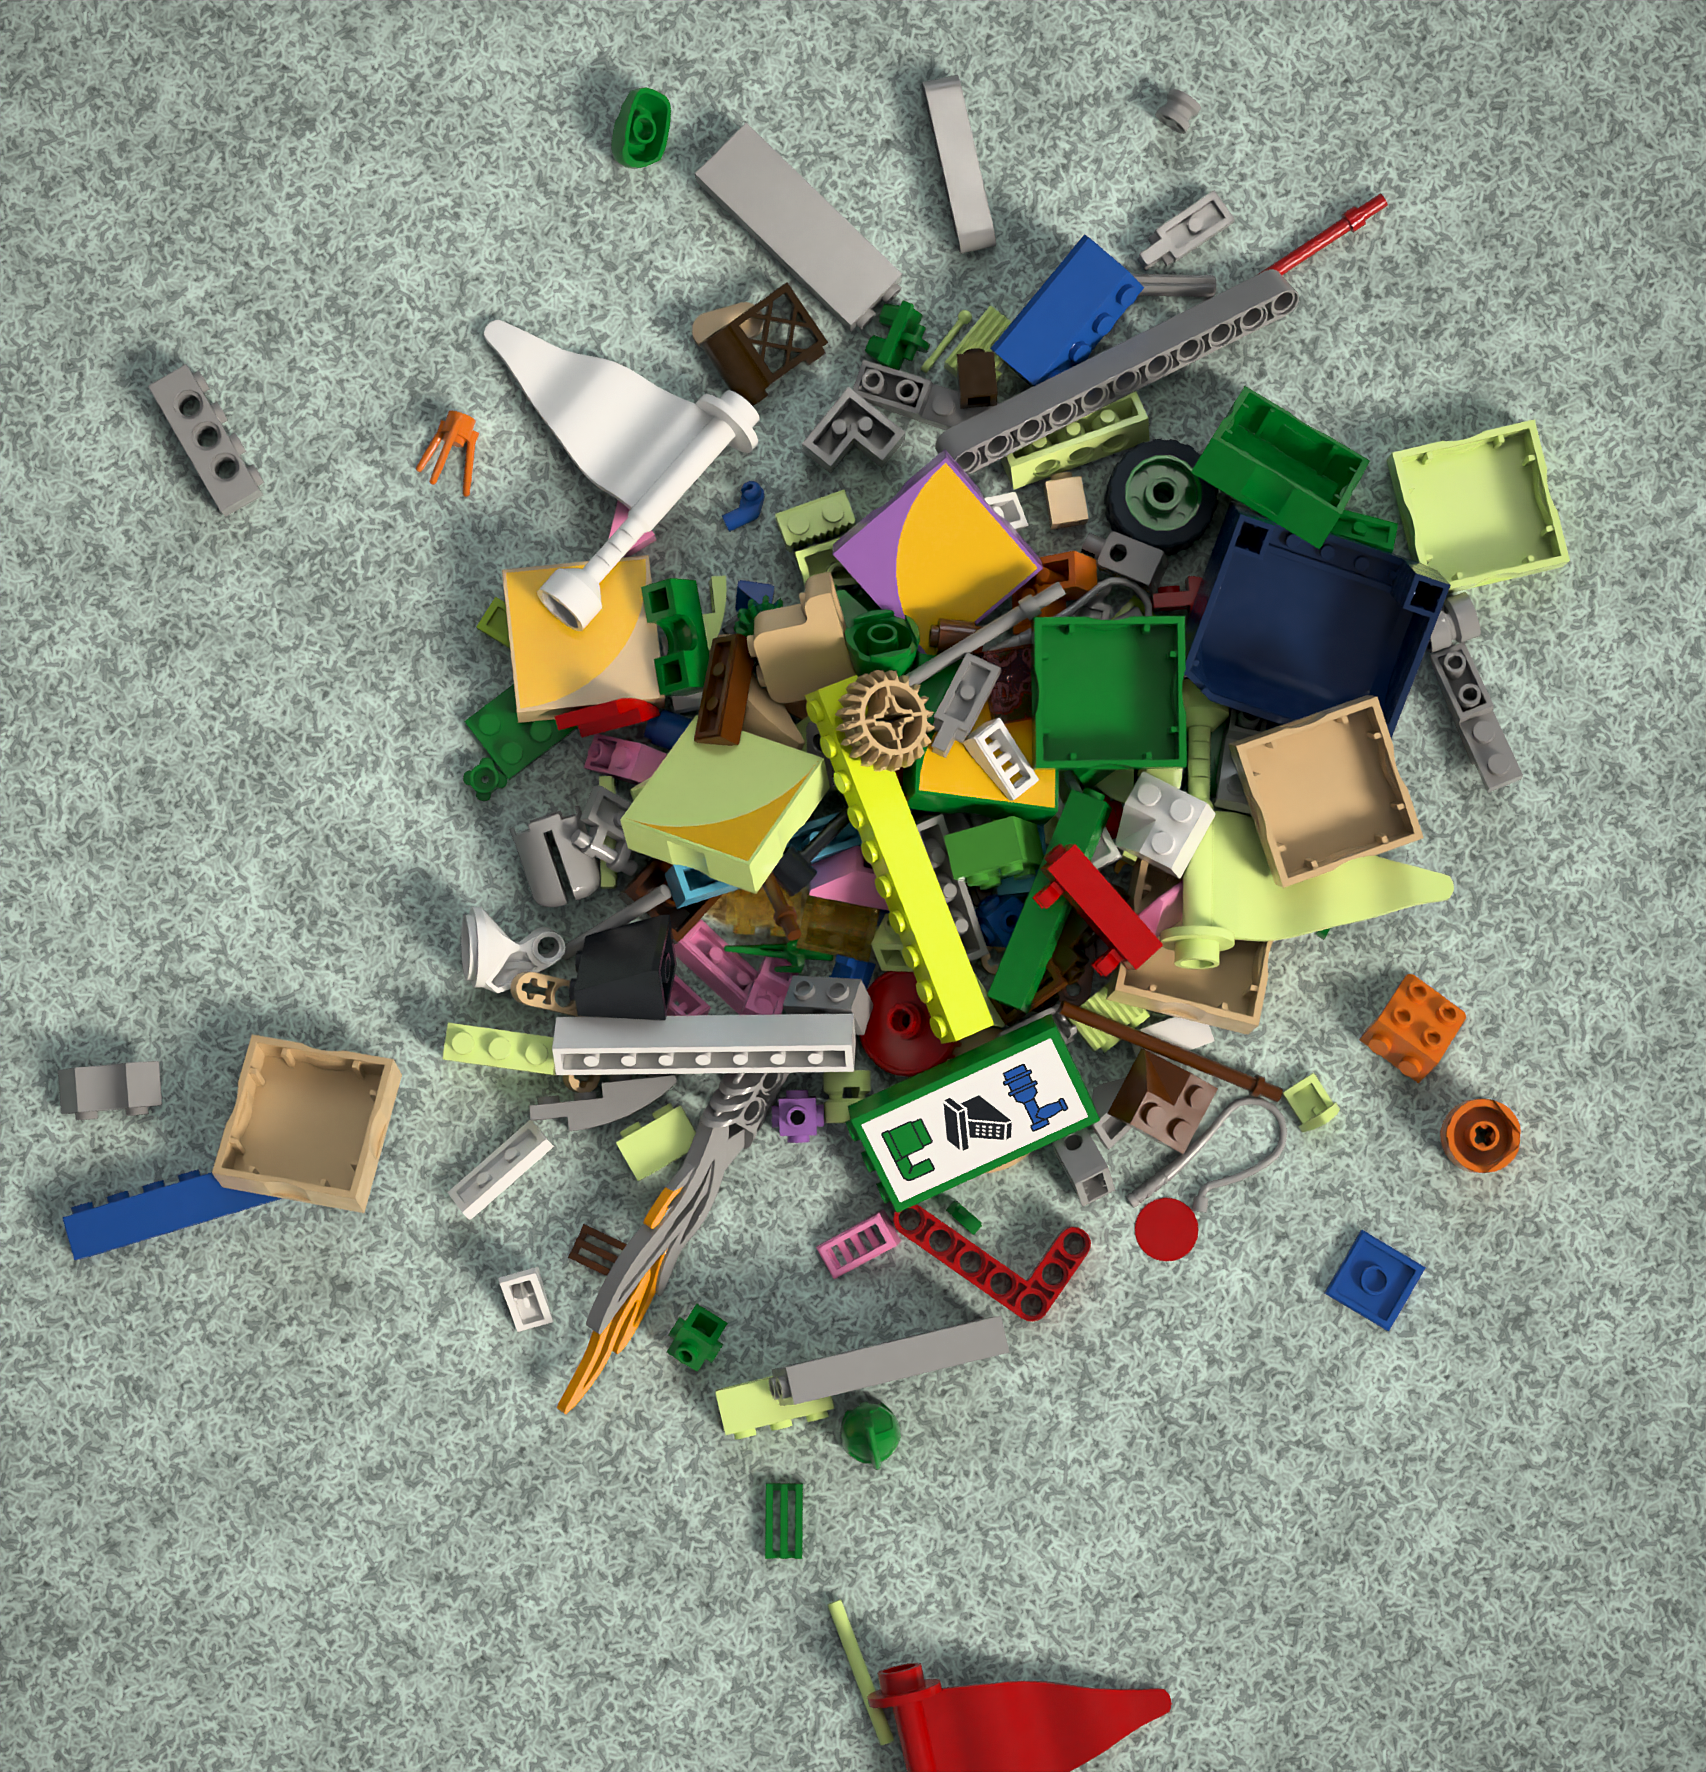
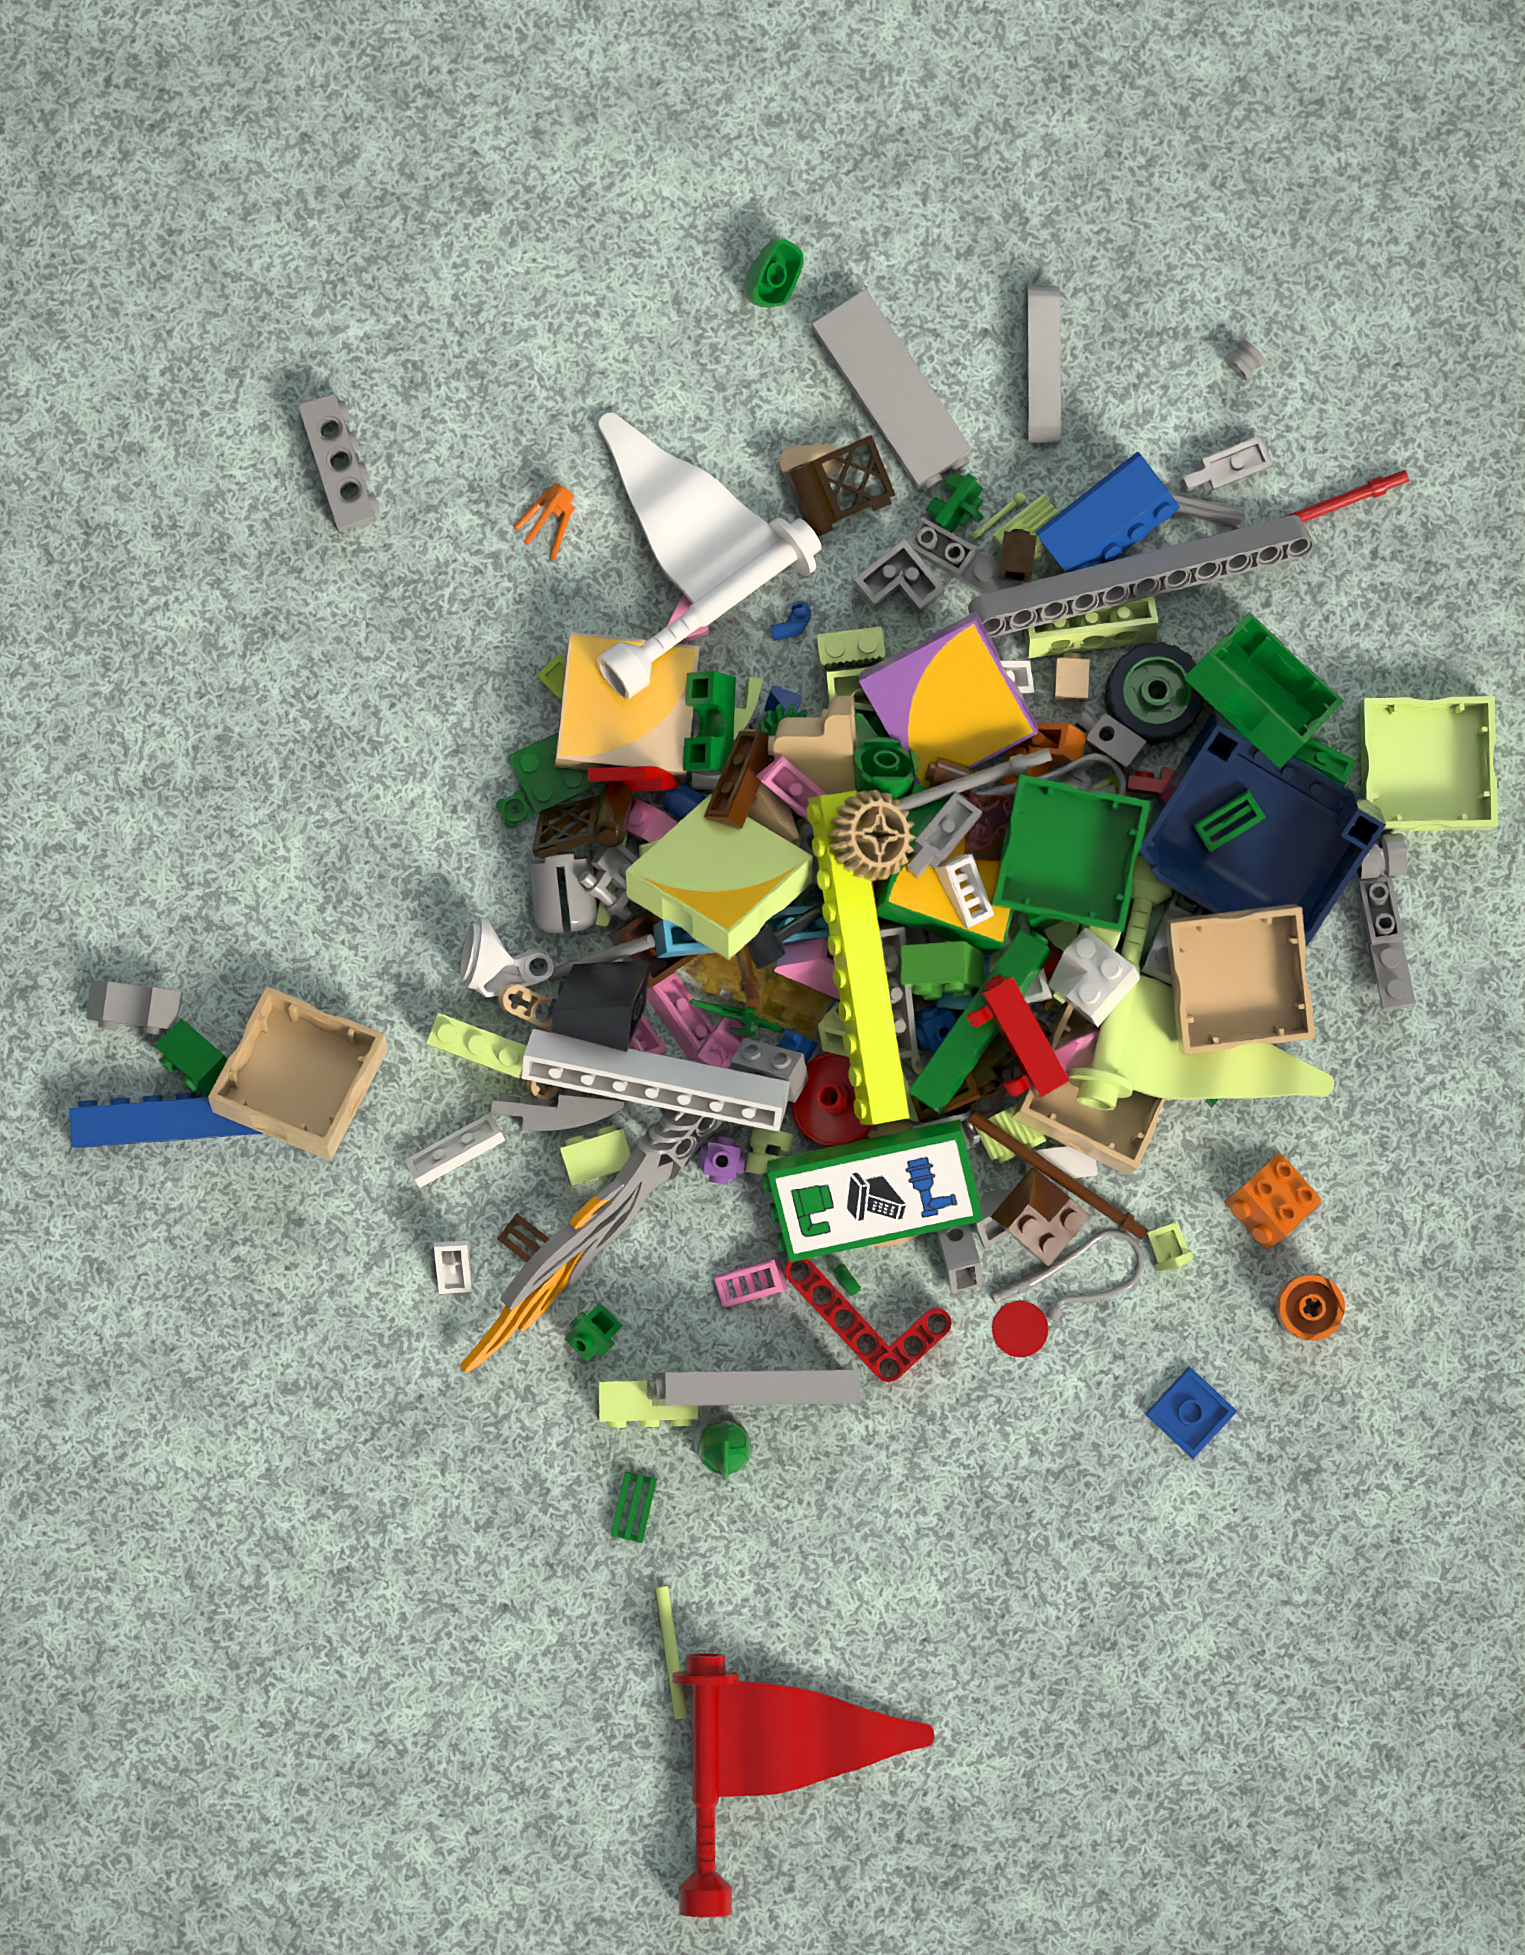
camera: 10 degrees right, 0 degrees up
(186, 1130) = (191, 1056): none -> green brick
(585, 771) = (604, 821): none -> dark brown piece
(781, 685) = (790, 784): none -> bright pink slope
(1296, 597) = (1232, 818): none -> green tile

